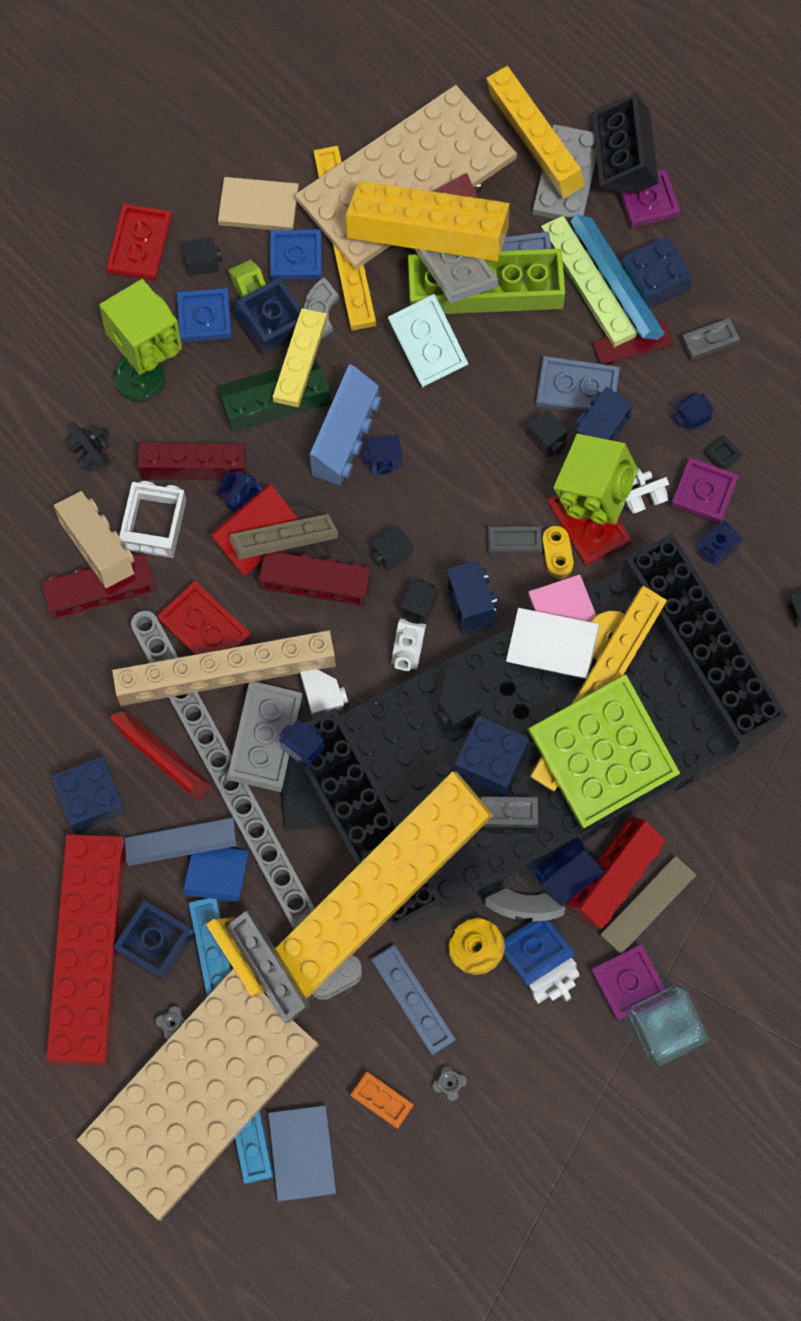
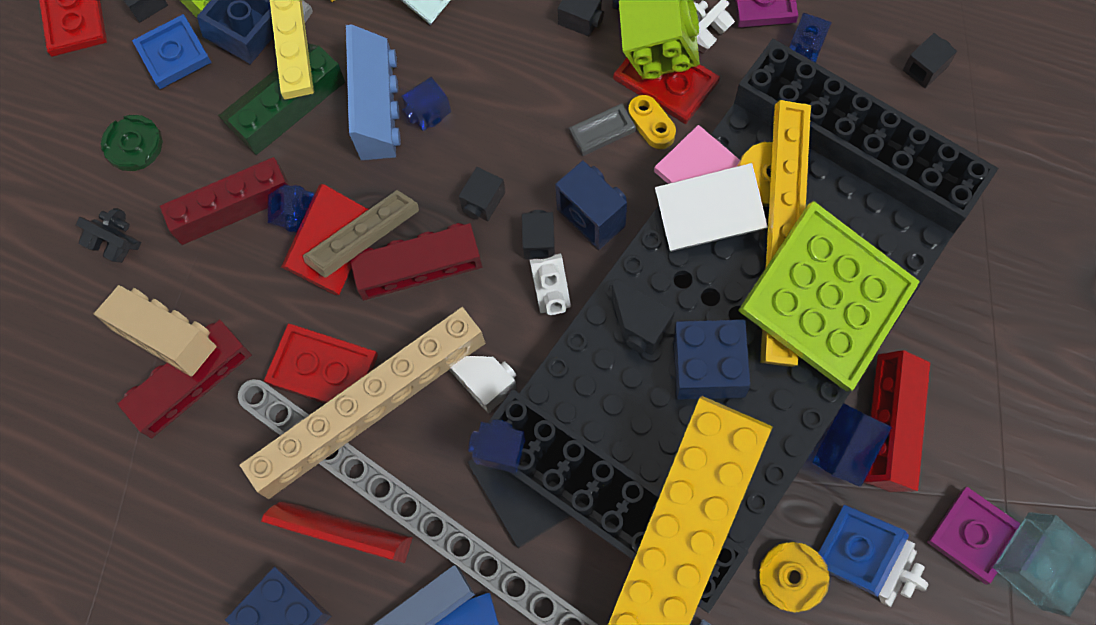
camera: 20 degrees left, 0 degrees up
(141, 326) = (107, 87): lime brick -> none
(148, 543) = (217, 307): white window -> none
(257, 749) = (445, 472): light grey plate -> none
(512, 811) = (770, 405): flat silver plate -> none
(513, 904) = (809, 510): light grey tile -> none
(648, 905) = (945, 440): dark tan tile -> none

